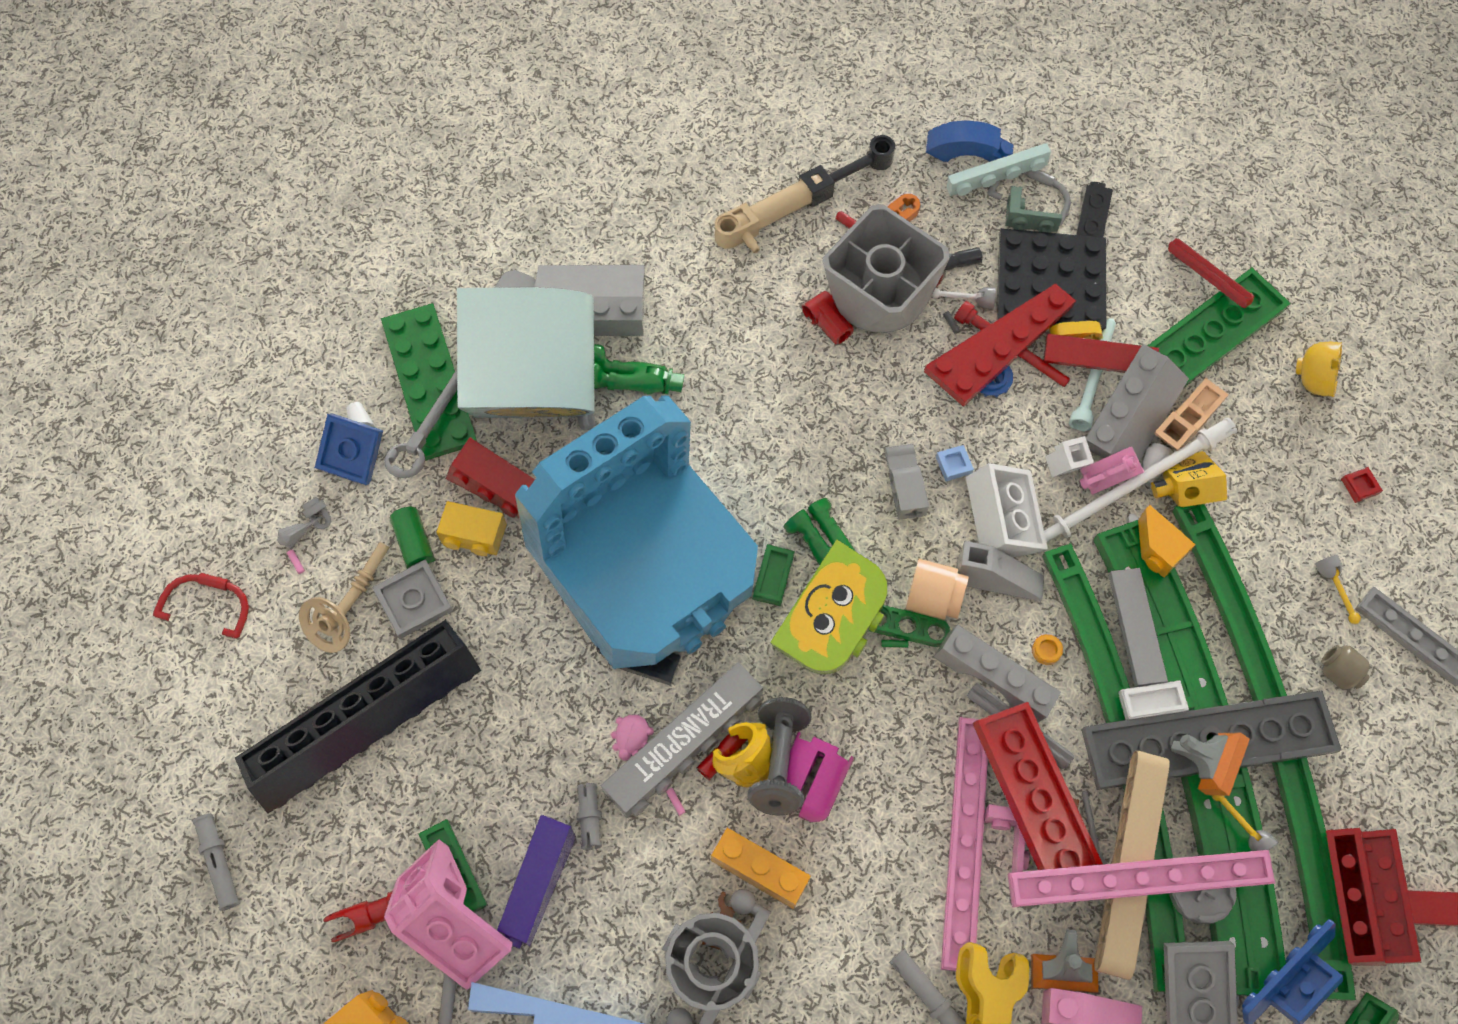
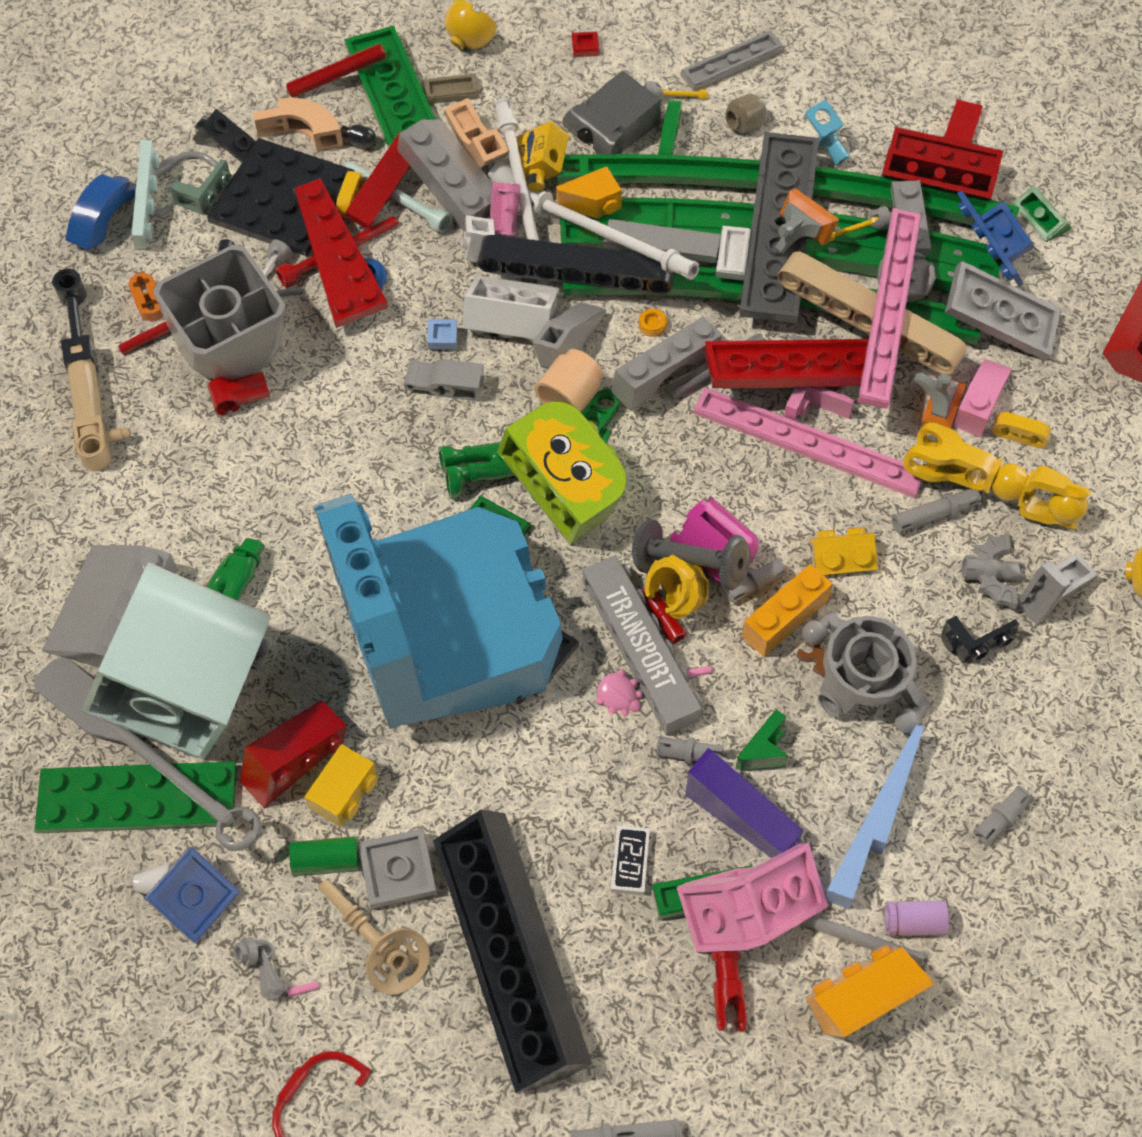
camera: 70 degrees left, 5 degrees down
(469, 793) = (630, 860): none -> tile
(604, 880) = (762, 749): none -> green slope
(788, 831) = (757, 579): none -> light grey pin
(848, 909) = (844, 552): none -> yellow bracket
(1072, 556) = (573, 264): none -> black beam
(1100, 636) = (670, 260): none -> white bar
(1144, 262) = (301, 117): none -> light nougat arch
(1147, 319) = (359, 135): none -> black cylinder
(1243, 380) = (451, 88): none -> dark tan tile
(1276, 538) = (615, 115): none -> dark grey piece
(1289, 596) = (670, 127): none -> green beam
(1289, 874) = (908, 197): none -> light grey plate
(1354, 759) = (828, 132): none -> medium azure bracket

